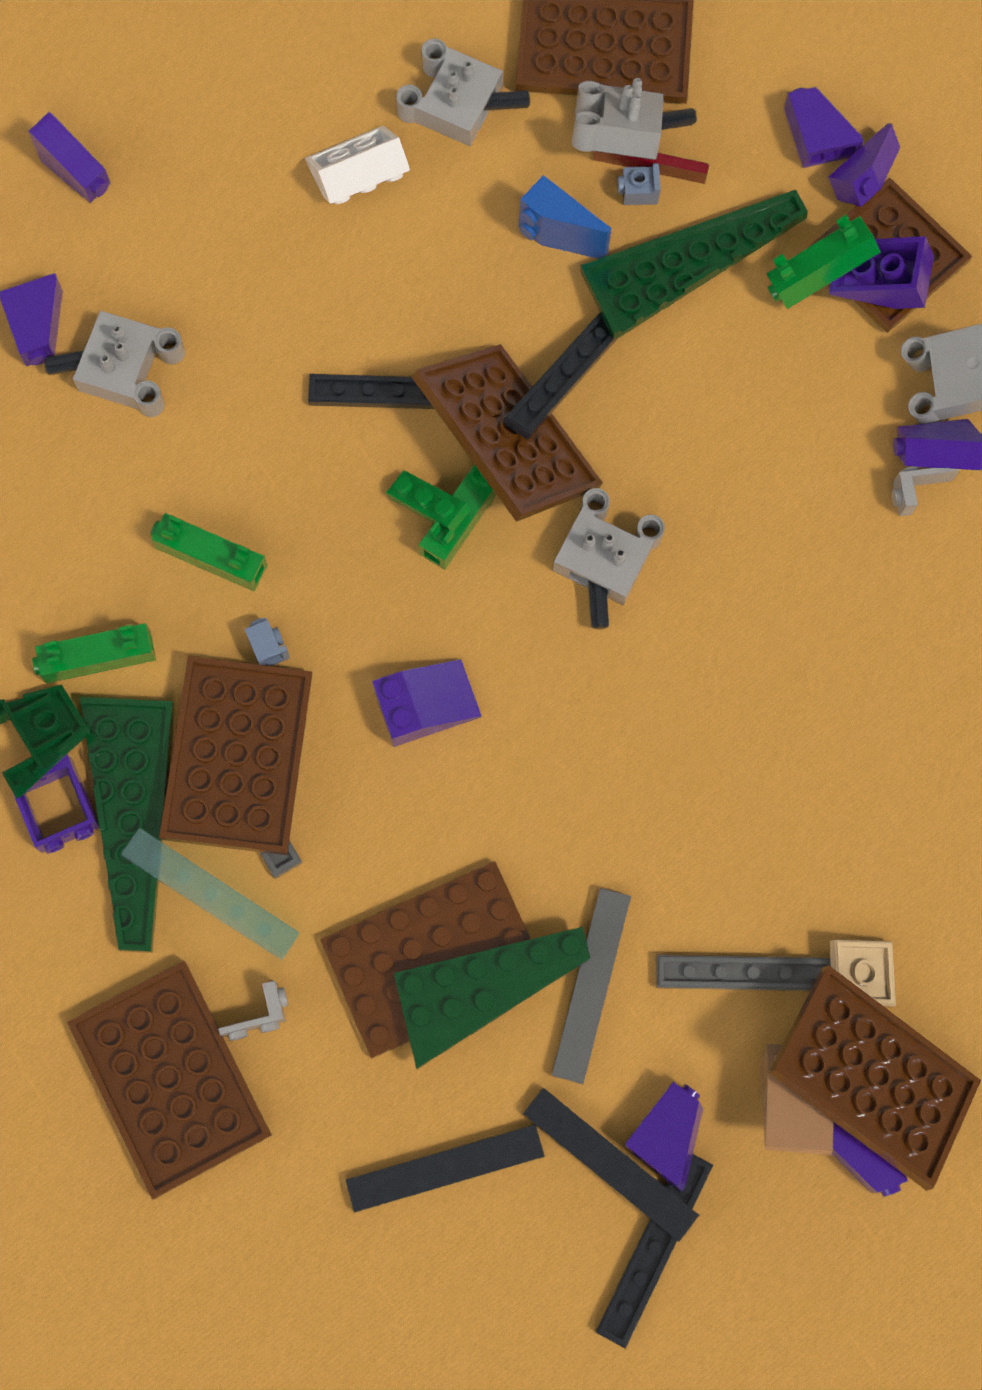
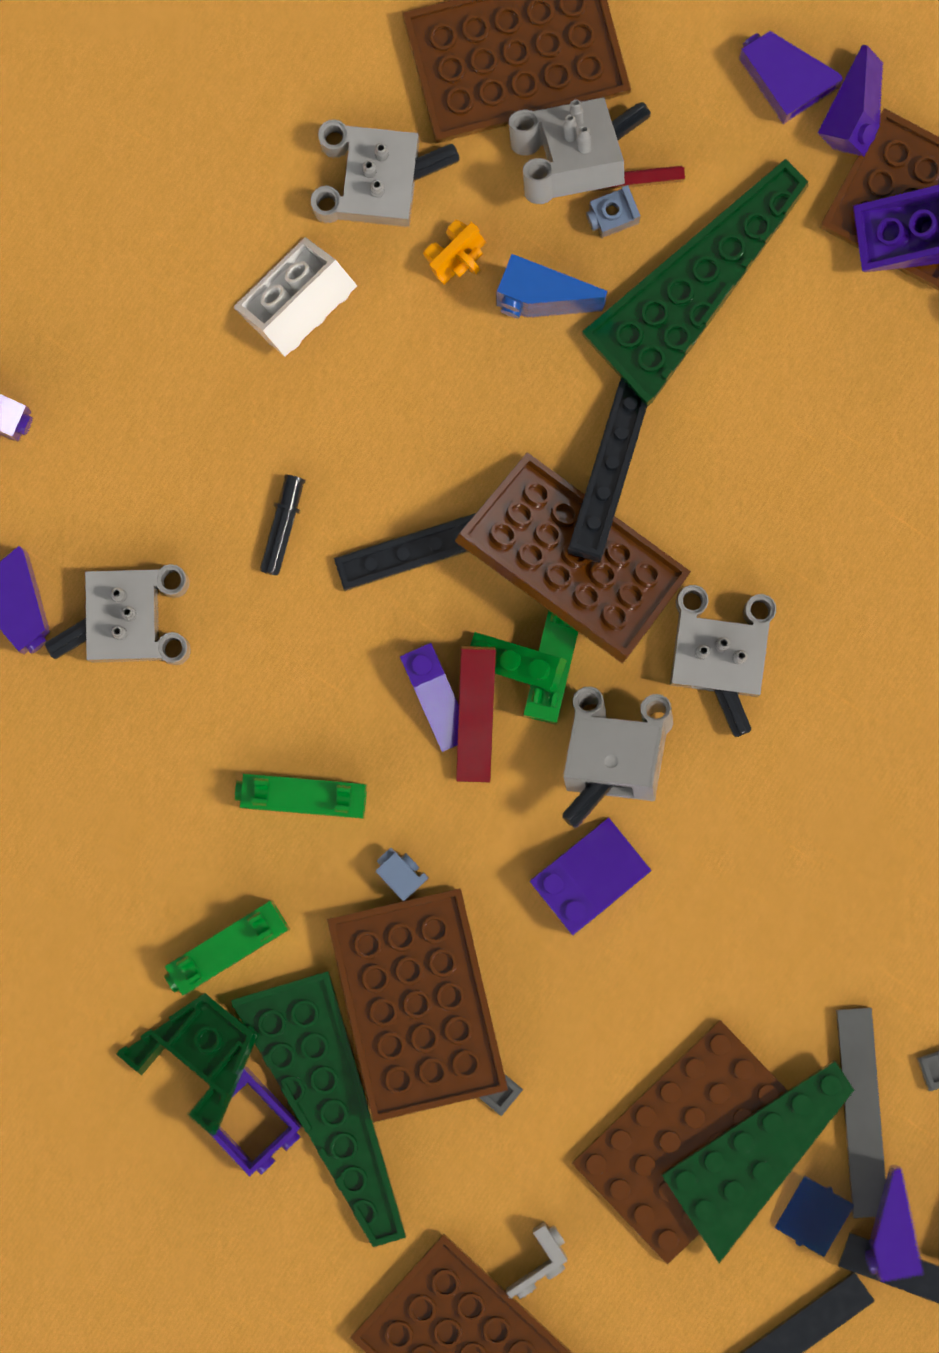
camera: 10 degrees left, 10 degrees up
(210, 894) = (444, 1158): clear light blue tile -> none
(277, 334) = (282, 524): none -> black axle
(351, 509) = (434, 694): none -> slope
(378, 532) = (475, 714): none -> dark red tile
(483, 600) = (613, 754): none -> light grey piece
(501, 173) = (459, 254): none -> light orange hips
(517, 1061) = (814, 1216): none -> clear blue piece
(578, 1098) = (893, 1237): none -> dark purple slope
(822, 262) = (845, 242): green brick -> none

